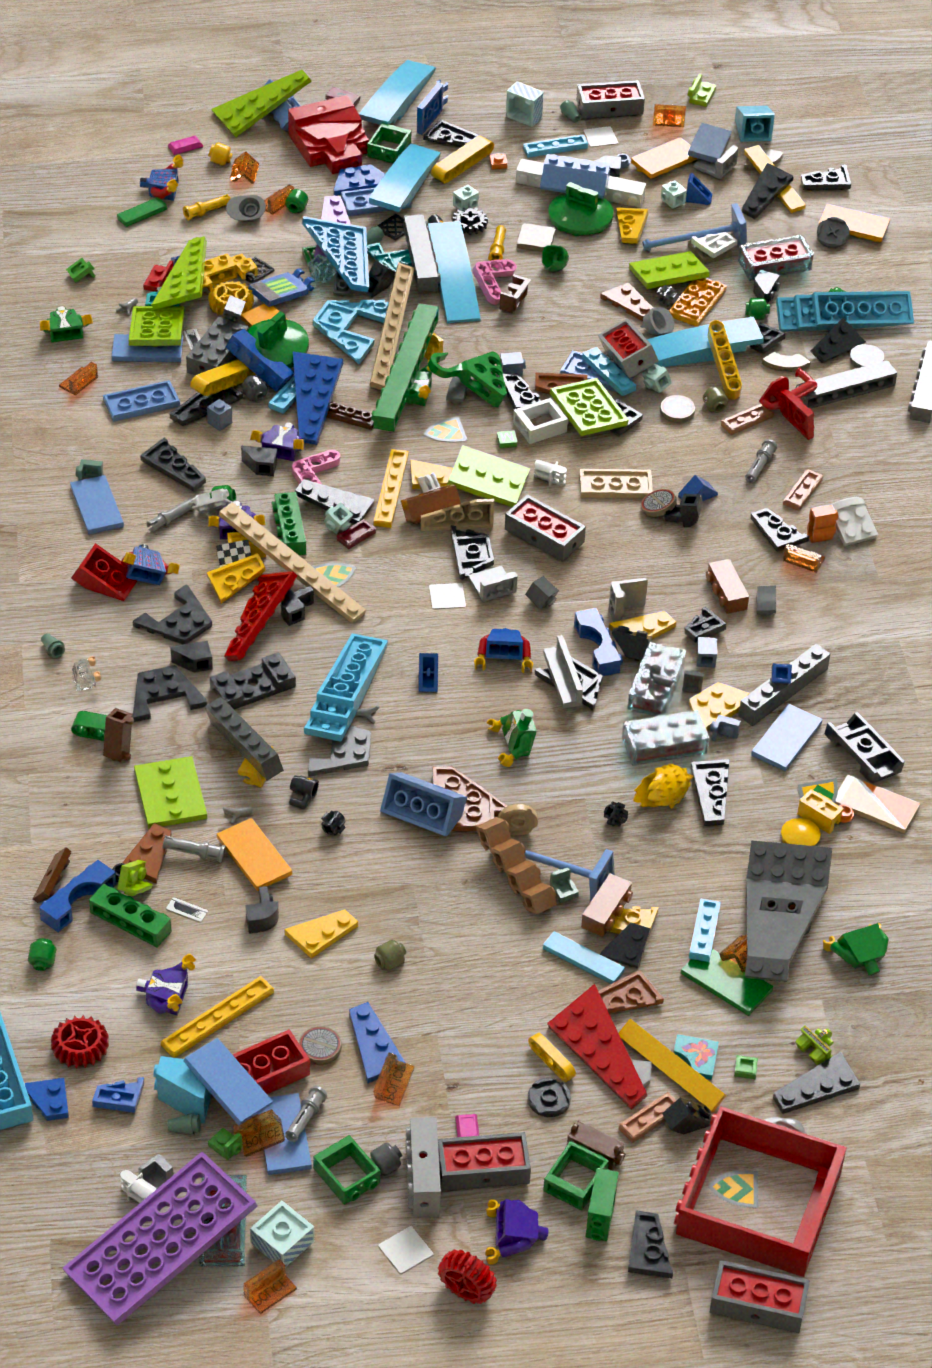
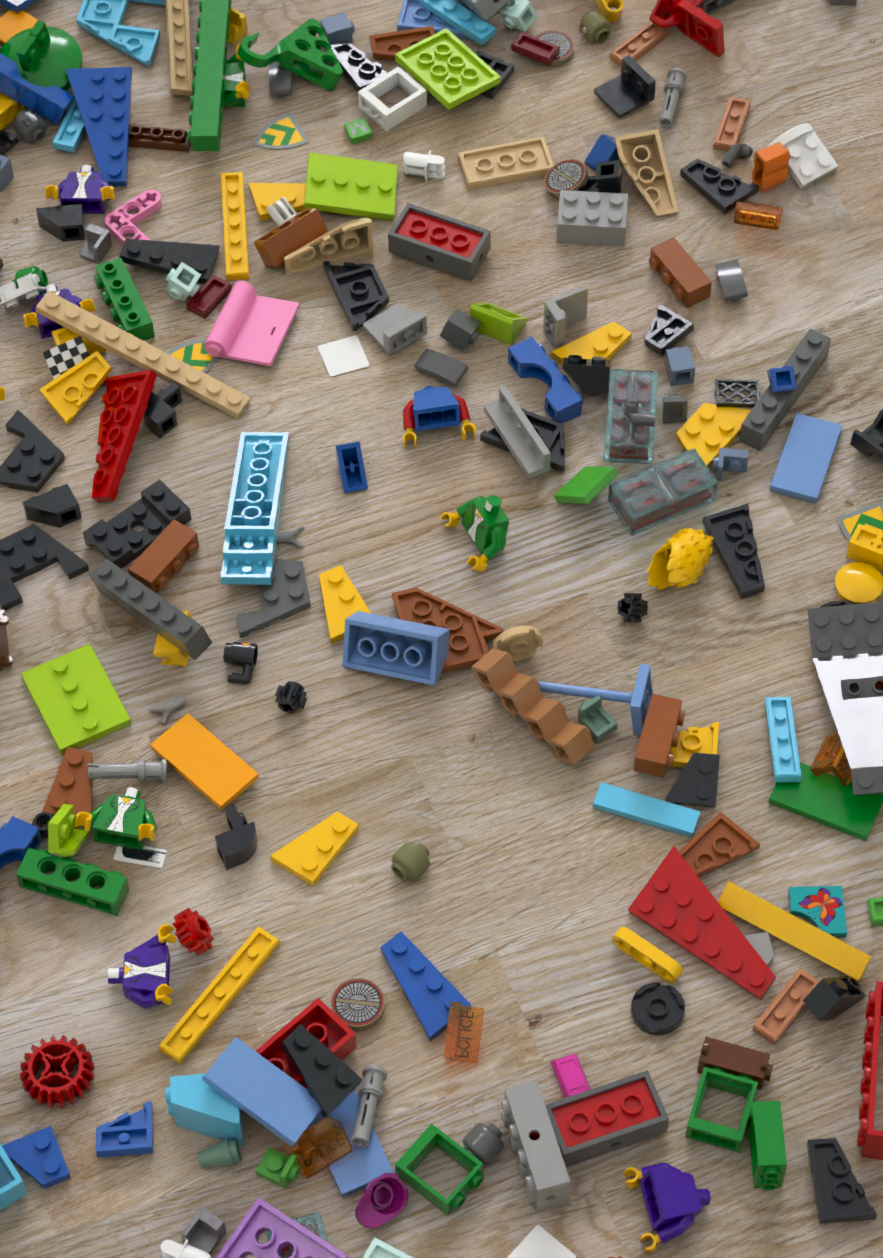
camera: 10 degrees left, 10 degrees up
(178, 881) = (120, 821): none -> green torso
(209, 967) = (193, 931): none -> red gear
(268, 706) = (165, 556): none -> dark orange brick
(276, 1078) = (324, 1073): none -> black wing
(282, 480) = (97, 243): none -> flat silver panel
(296, 1180) = (381, 1201): none -> magenta piece
(381, 560) = (250, 326): none -> bright pink door
(391, 760) = (339, 600): none -> yellow wing
(520, 616) = (443, 367): none -> dark grey slope
(573, 594) = (497, 322): none -> lime slope
(606, 720) = (586, 485): none -> bright green tile
(663, 406) = (535, 48): none -> dark red tile
(670, 534) = (592, 218): none -> light grey brick
(724, 506) = (647, 166): none -> tan wedge
(727, 450) = (627, 90): none -> black bracket
(741, 674) = (729, 401): none -> black window
(798, 509) = (736, 151): none -> dark grey arm

